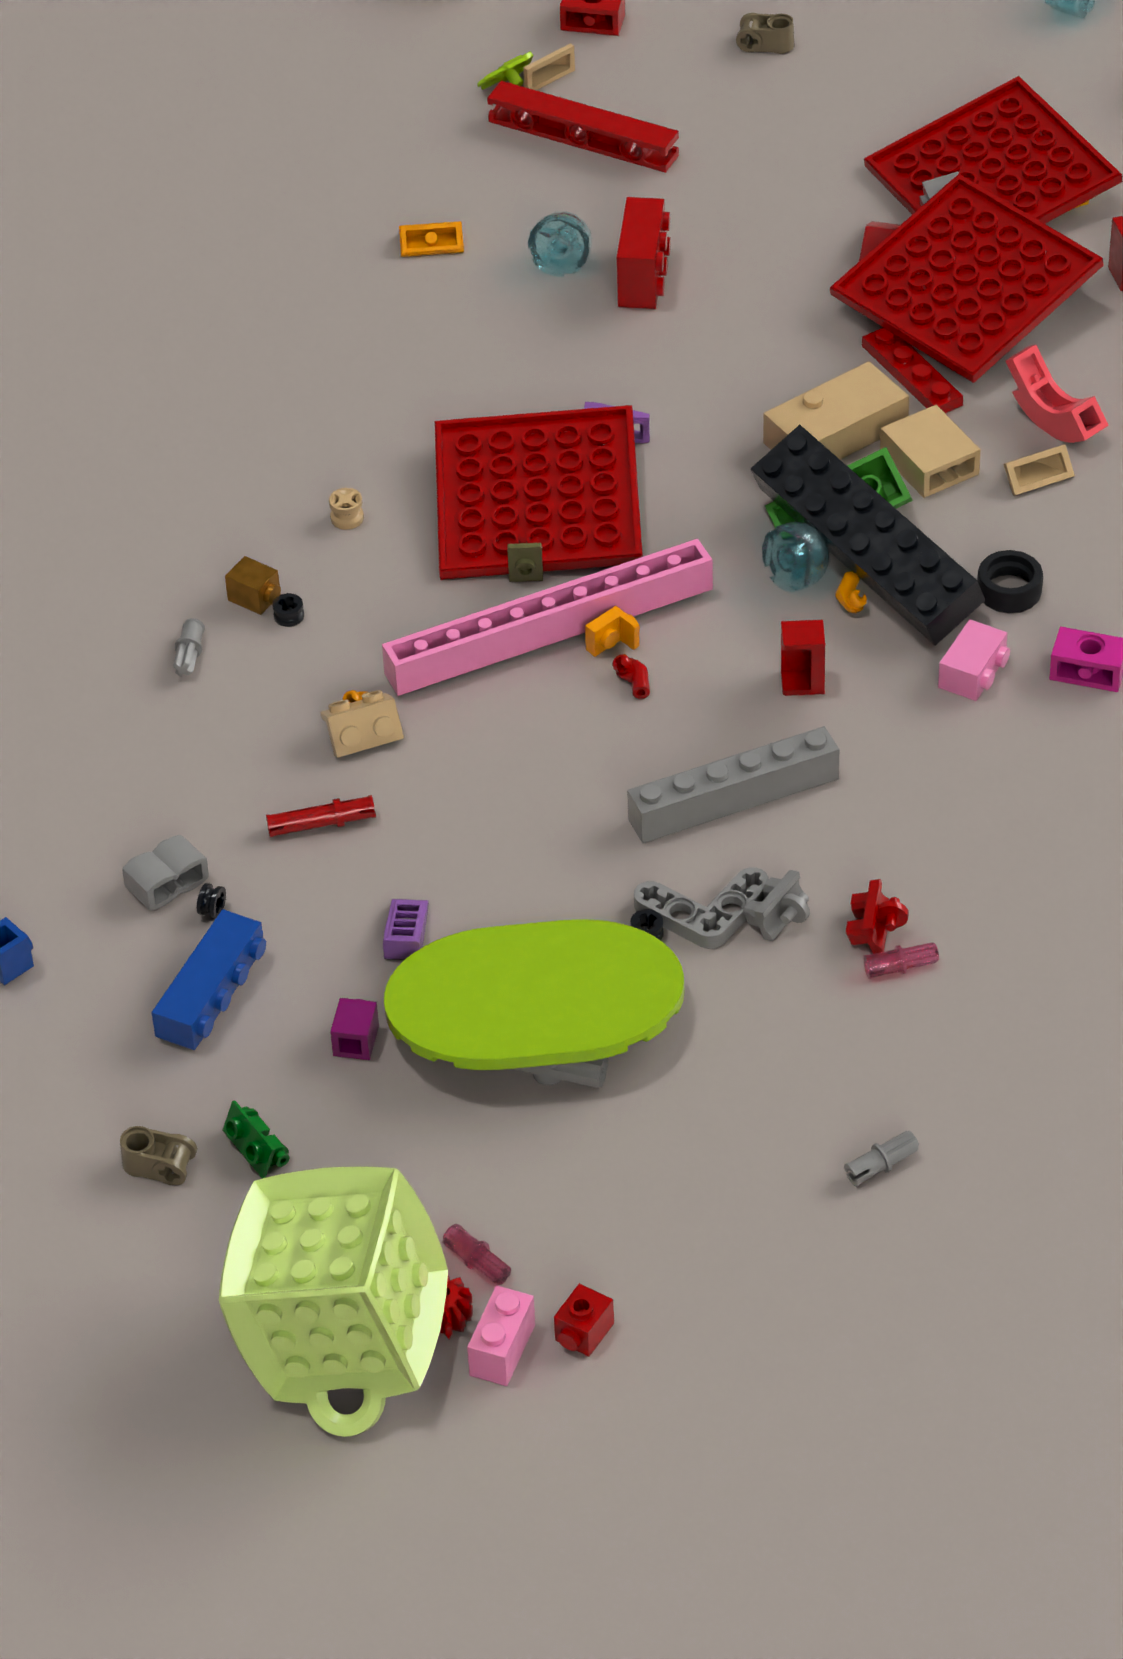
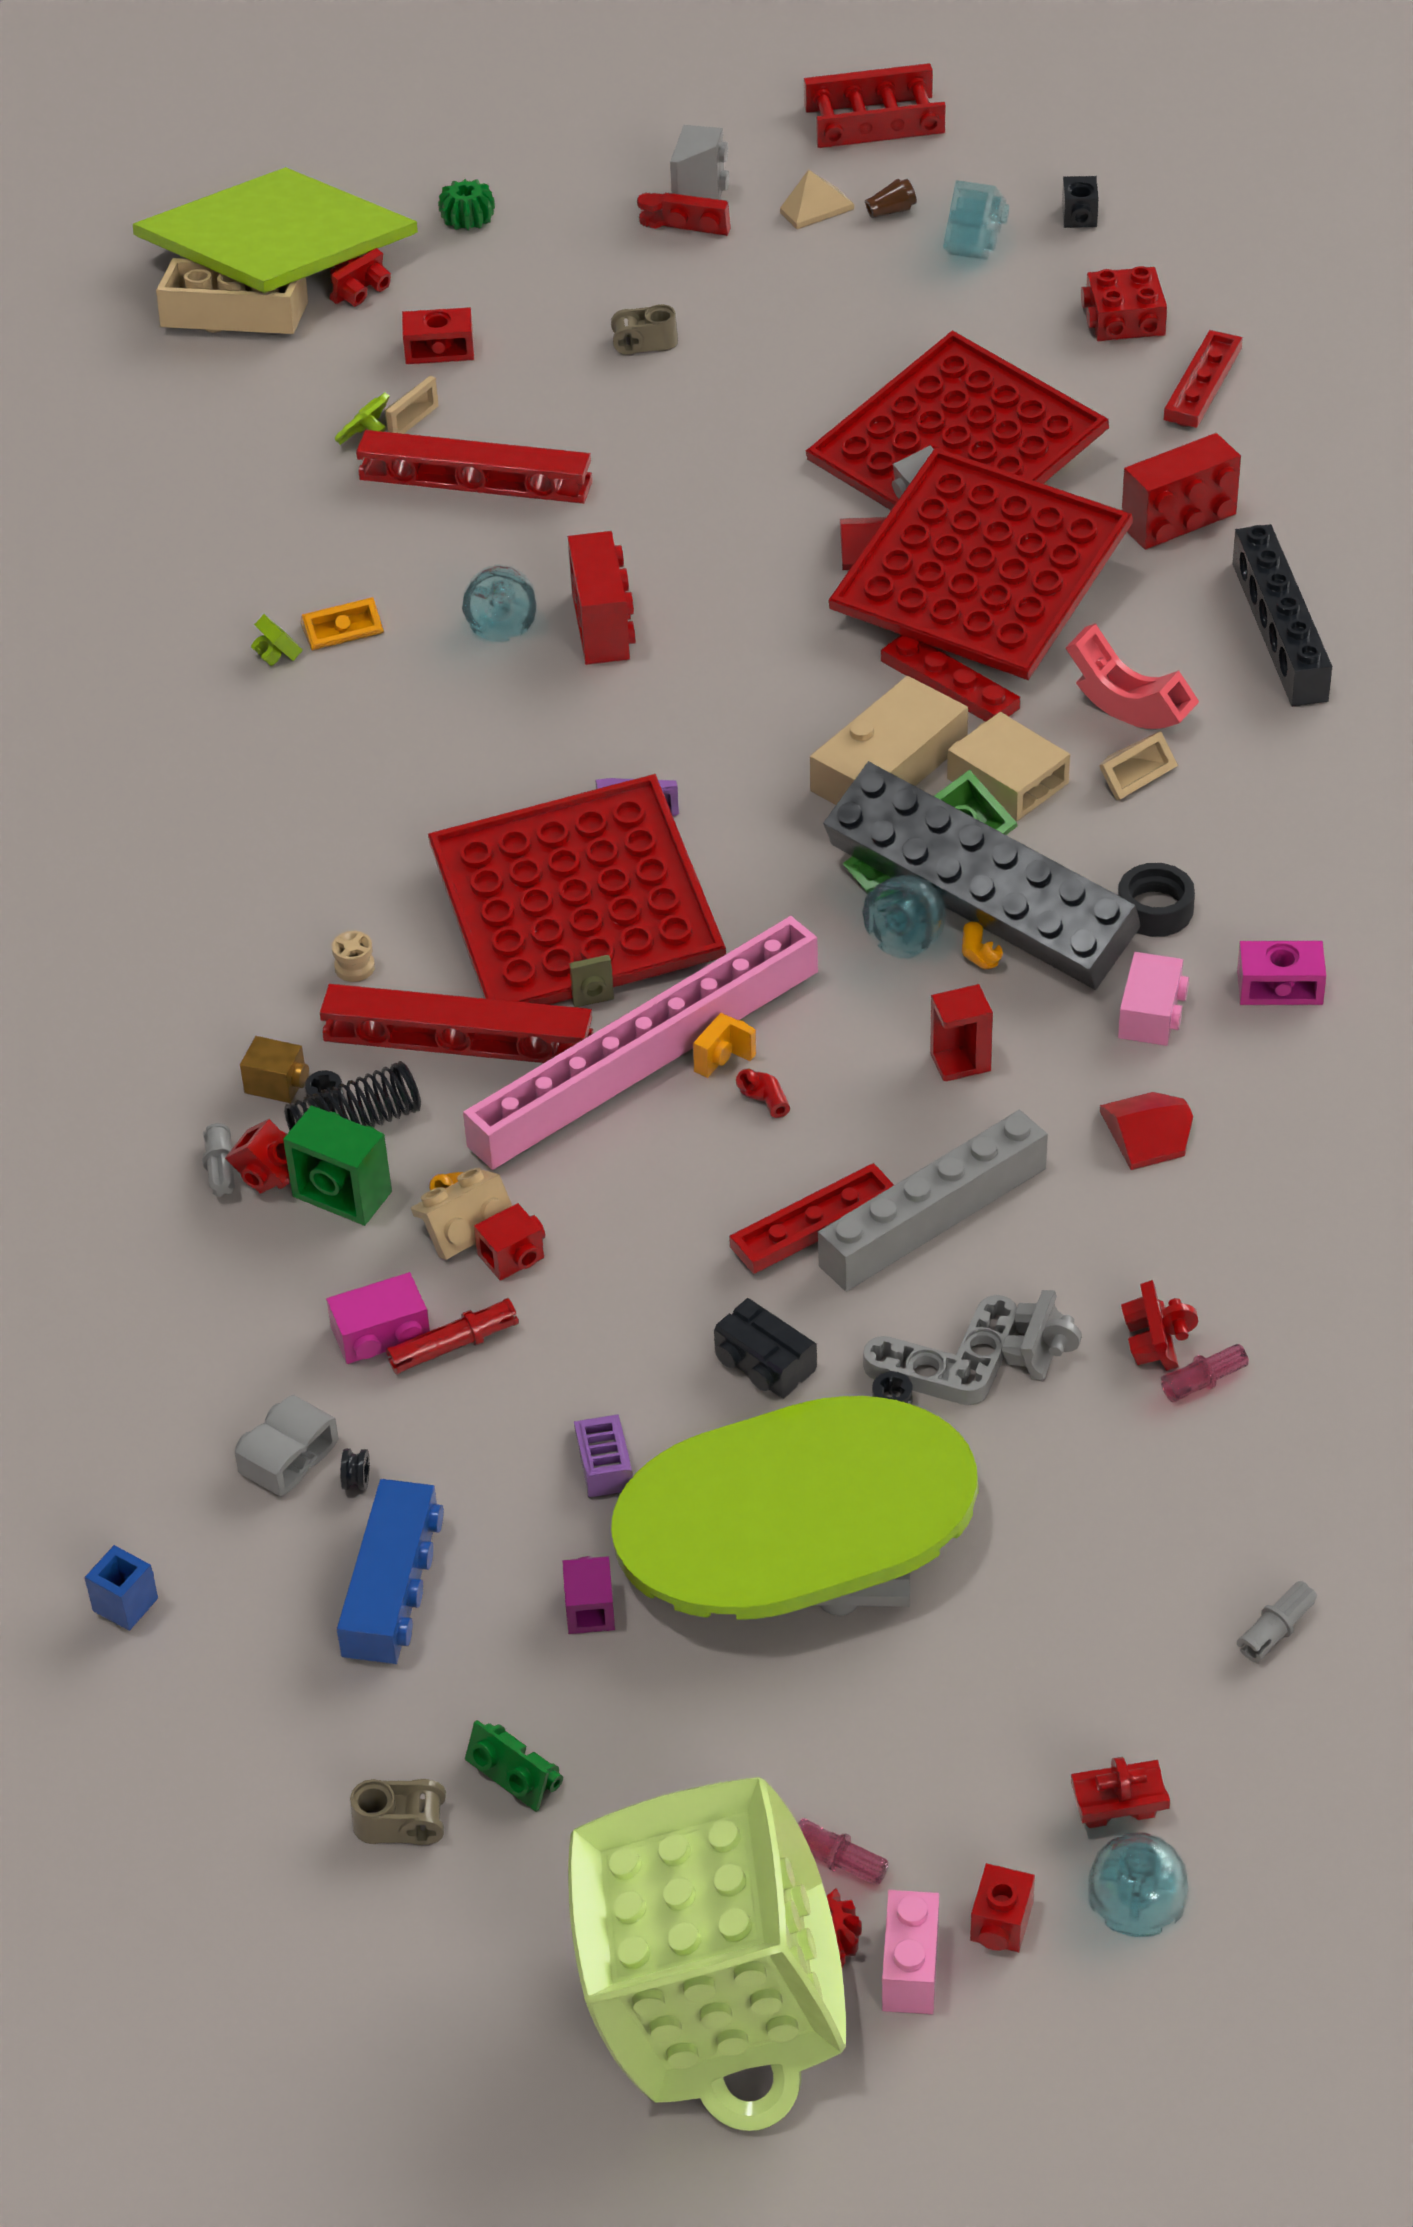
camera: 15 degrees left, 0 degrees up
(222, 651) = (261, 1157): none -> red brick
(266, 789) = (377, 1317): none -> dark pink brick
(274, 667) = (338, 1165): none -> green brick
(346, 605) = (396, 1072): none -> black piece
(371, 244) = (274, 642): none -> lime tile
(390, 752) = (510, 1241): none -> red brick
(401, 574) = (451, 1023): none -> red piece
(557, 872) = (764, 1348): none -> black brick
(611, 785) = (799, 1223): none -> red plate
(696, 1326) = (1138, 1884): none -> clear light blue cylinder
(705, 1256) = (1120, 1792): none -> red hips
(933, 762) = (1149, 1127): none -> red slope

